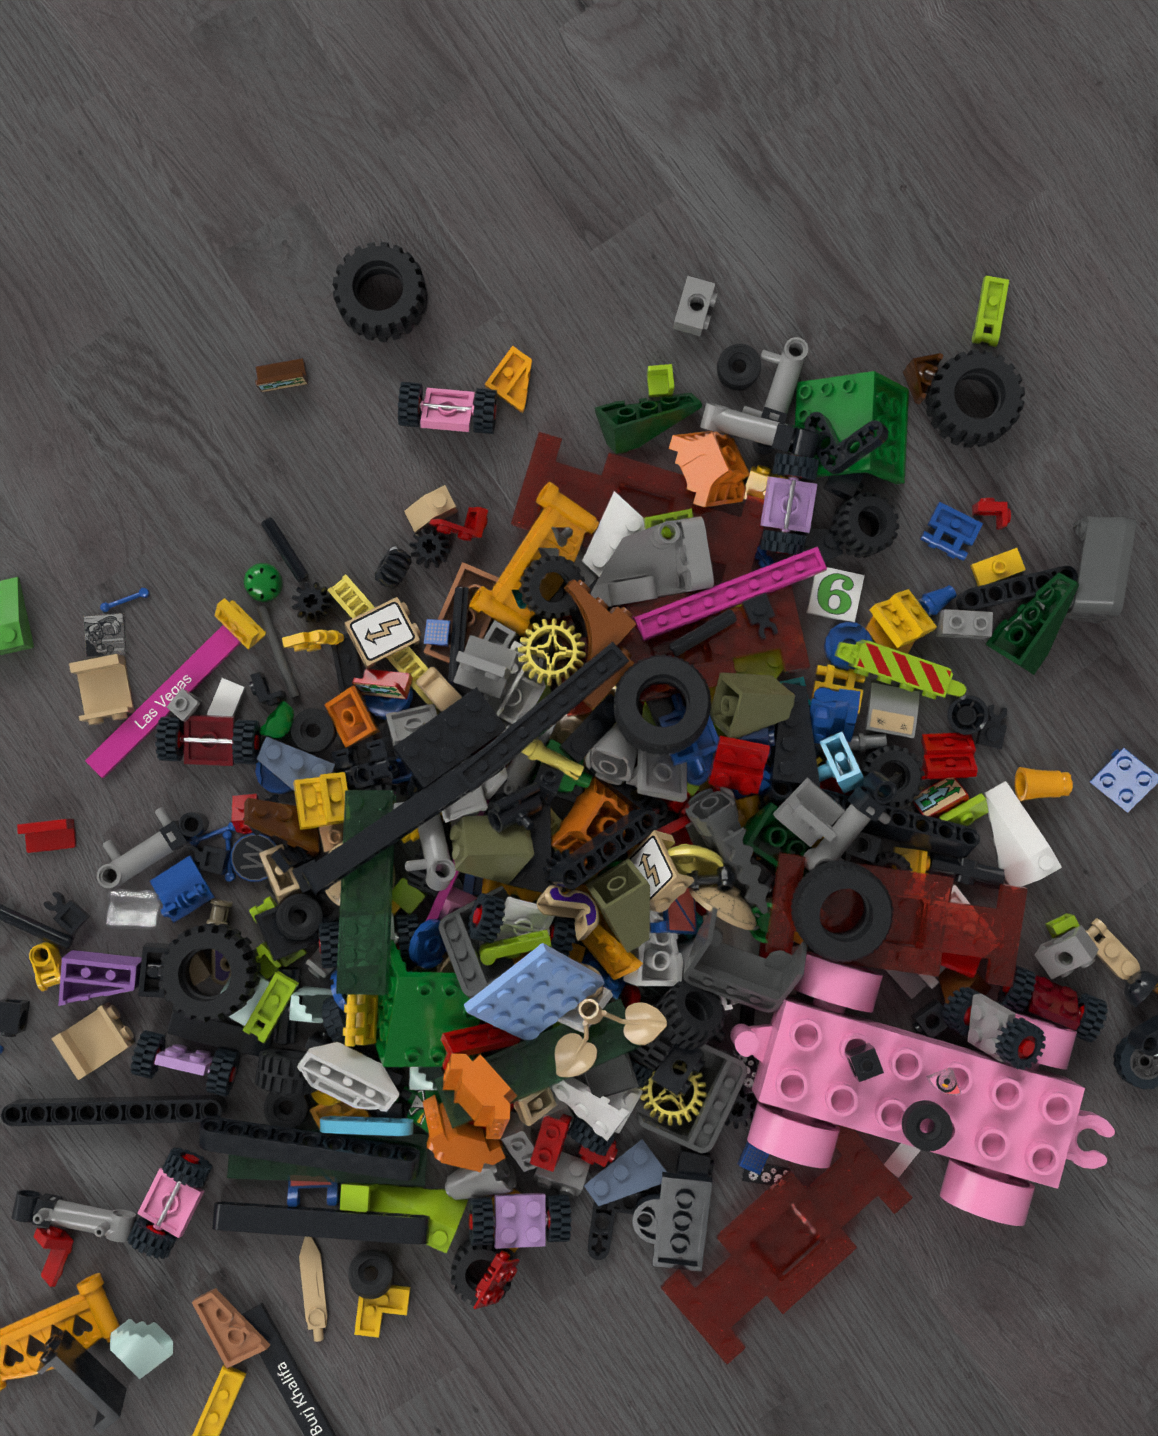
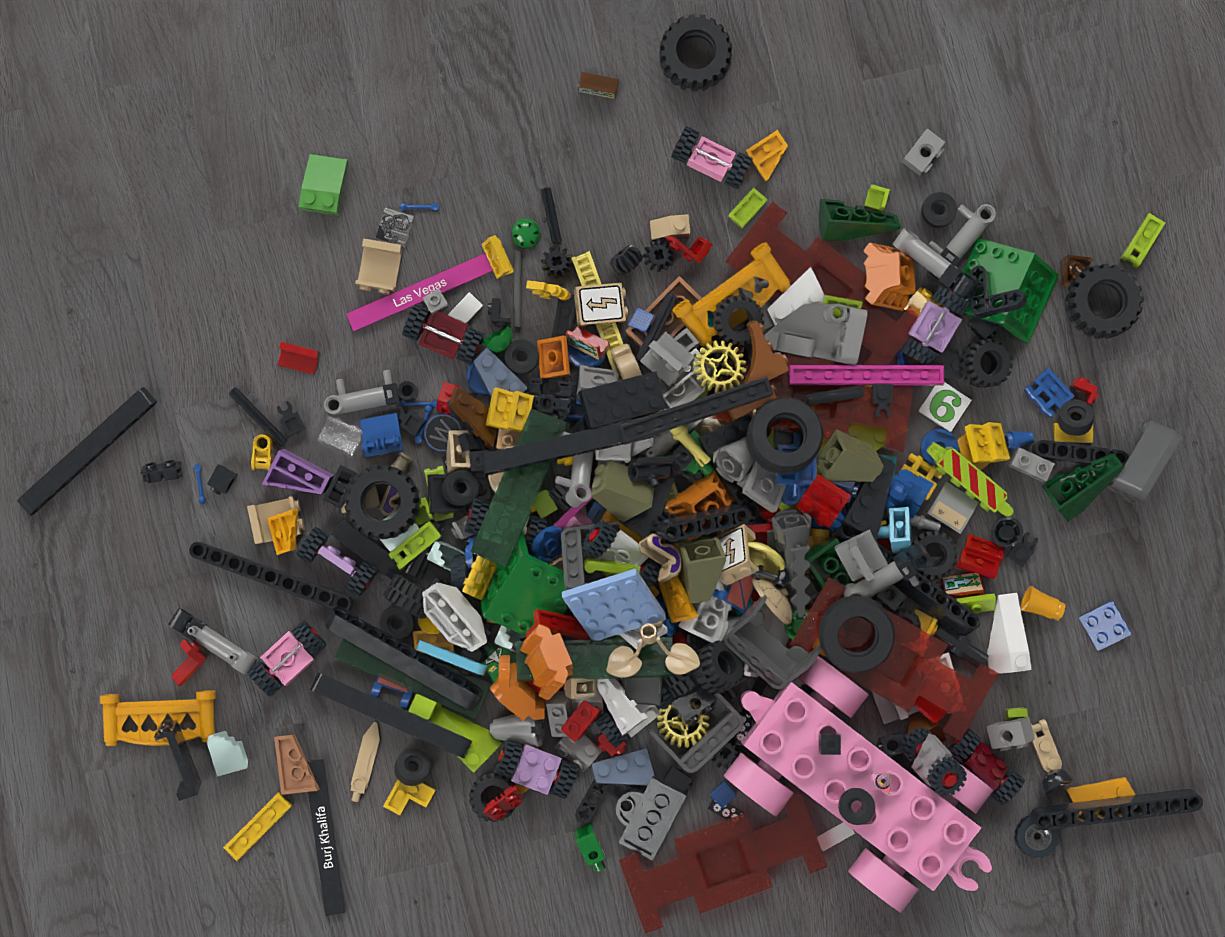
camera: 25 degrees right, 0 degrees up
(107, 1050) = (284, 530): none -> light orange wing
(513, 451) = (747, 208): none -> lime plate
(620, 1285) = (588, 842): none -> green torso
(995, 560) = (1079, 408): none -> black tyre

